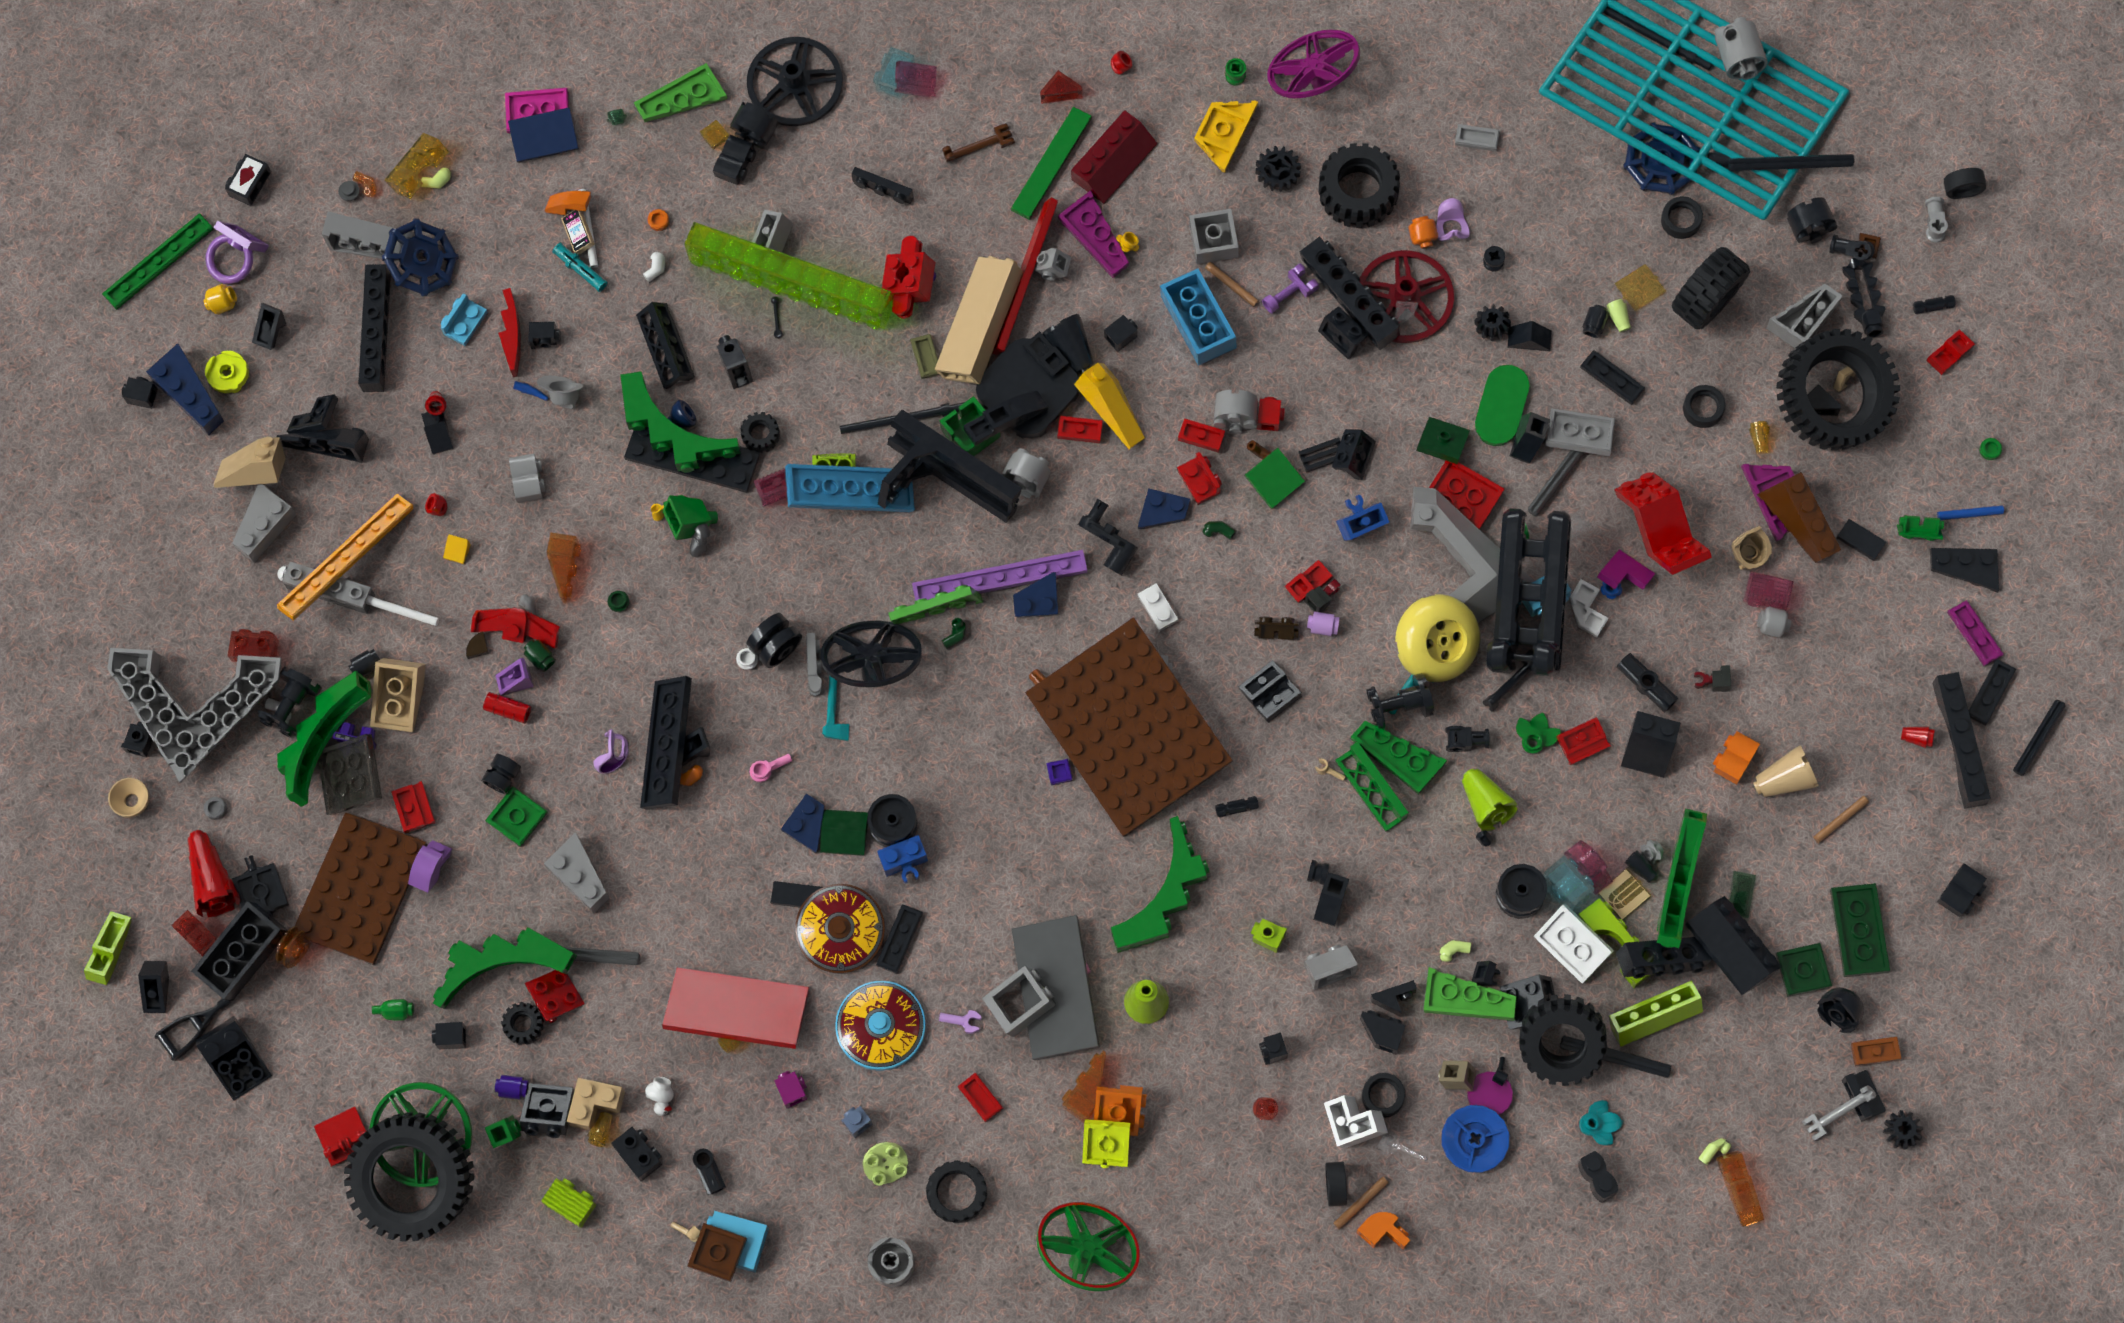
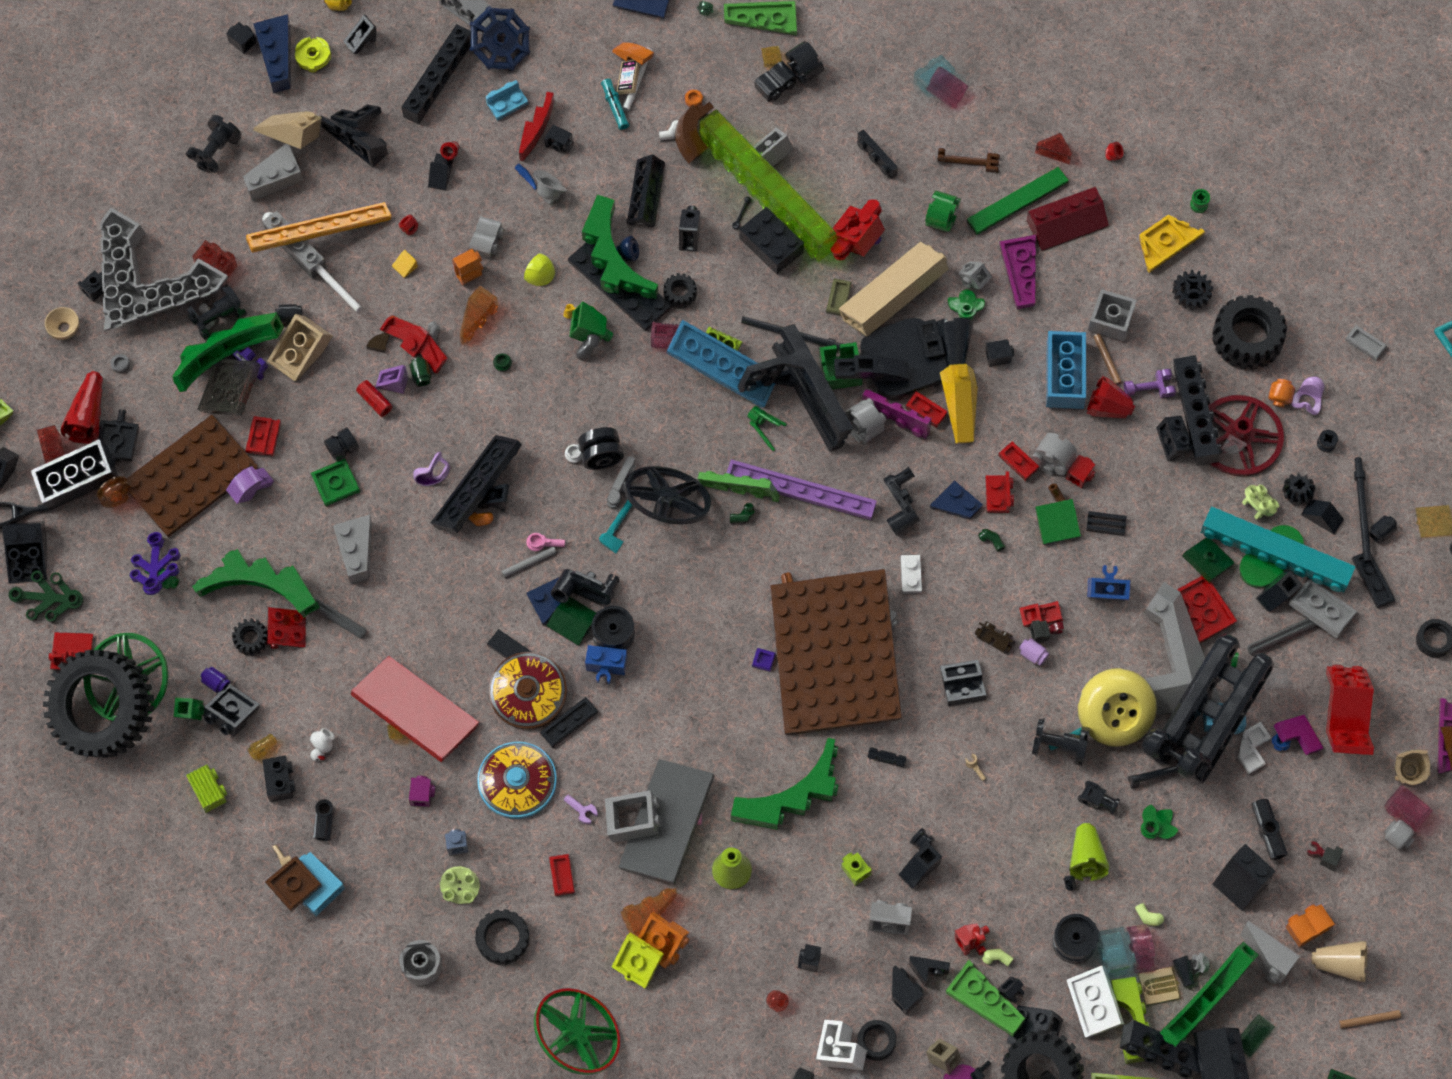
camera: 25 degrees right, 5 degrees down
(181, 512) = (218, 138): none -> black piece
(286, 1093) = (48, 597): none -> dark green plant
(381, 1002) = (154, 583): none -> dark purple plant
(449, 1035) = (191, 617): black brick -> none
(526, 518) = (468, 266): none -> orange brick
(590, 1097) = (267, 718): tan brick -> none
(603, 485) = (539, 271): none -> neon yellow helmet
(674, 262) = (686, 132): none -> reddish brown arch
(755, 808) = (528, 562): none -> light grey bar
(795, 79) = (855, 45): black wheel -> none
(825, 331) = (771, 240): none -> black brick
(839, 790) = (584, 586): none -> black piece
(915, 522) = (759, 416): none -> green plant
(984, 213) = (941, 211): none -> green brick
(1027, 267) = (953, 269): red tile -> none
(1038, 598) = (821, 519): dark blue wing -> none
(1053, 448) = (918, 426): none -> magenta wing
(1057, 296) = (966, 304): none -> green plate
(1128, 241) = (1043, 287): yellow plate -> none
(1259, 325) = (1109, 401): none -> red cone
(1315, 66) = (1265, 225): magenta wheel -> none
(1354, 453) = (1132, 534): black bracket -> none
(1379, 783) = (1009, 797): green fence -> none
(1407, 762) = (1039, 789): green wing -> none
(1419, 944) = (971, 937): none -> red piece
(1462, 354) = (1260, 500): none -> yellowish green plate
(1506, 396) = (1277, 549): none -> teal brick
(1545, 280) = (1360, 477): none -> black bar
(1579, 832) = (1149, 918): none -> yellowish green arm
(1583, 740) = (1192, 848): red plate -> none
(1619, 314) = (1405, 532): yellowish green cone -> none
(1723, 808) = (1273, 958): none -> light grey slope

